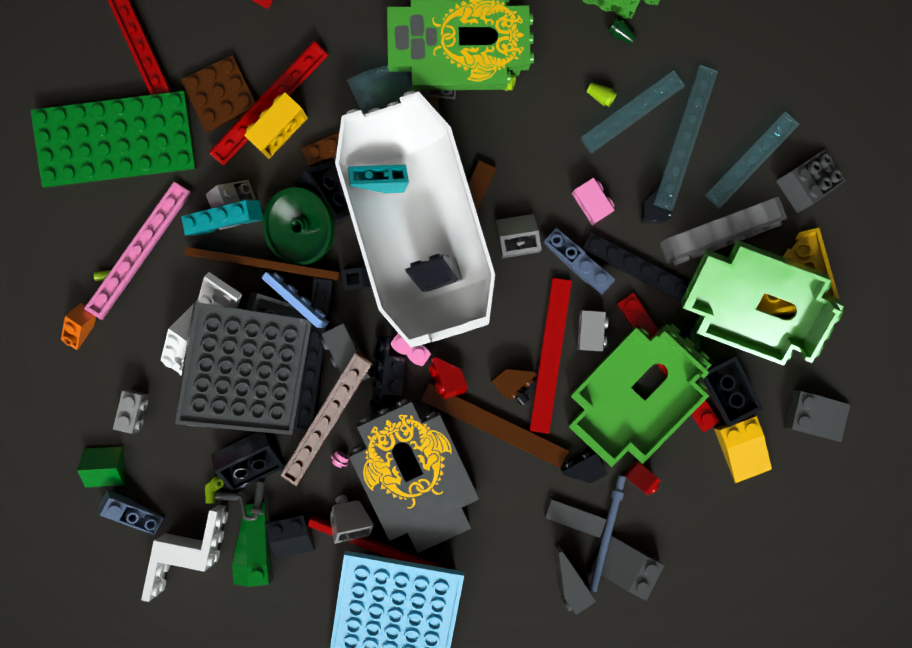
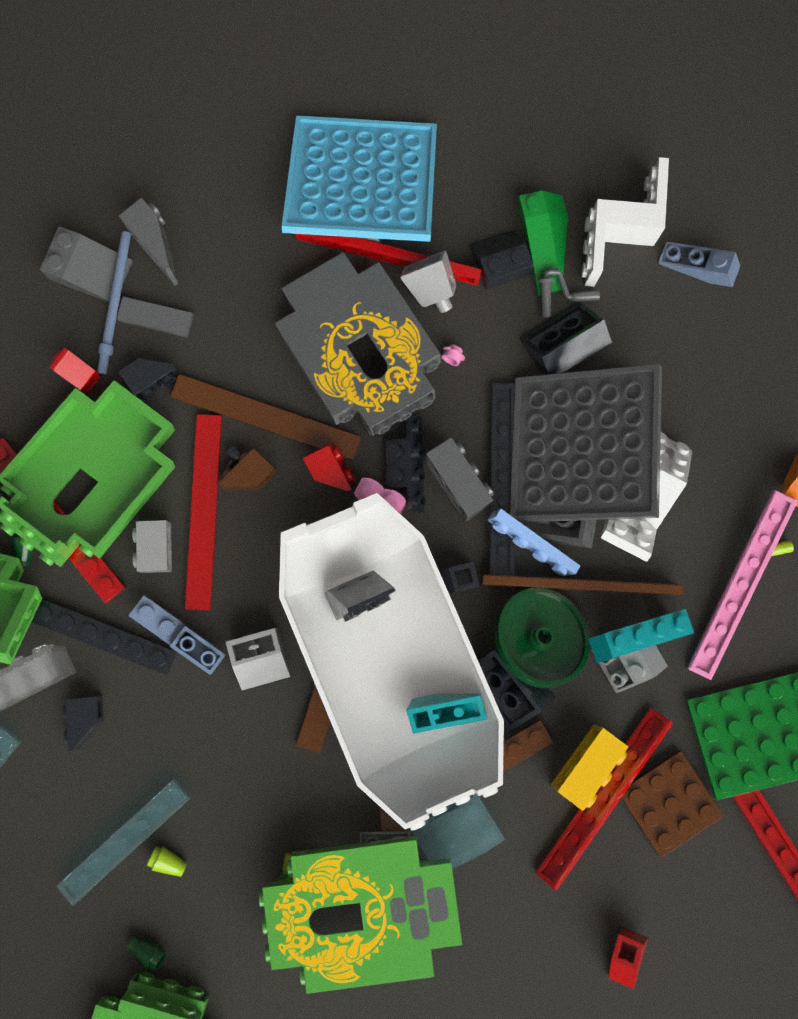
camera: 170 degrees right, 5 degrees down
(102, 467) = (742, 314): green slope -> none
(131, 411) = (718, 382): light grey brick -> none
(210, 489) = (606, 302): lime arm -> none
(327, 418) = (473, 400): tile -> none
(593, 201) = (165, 715): bright pink brick -> none
(685, 138) = (49, 815): clear light blue tile -> none

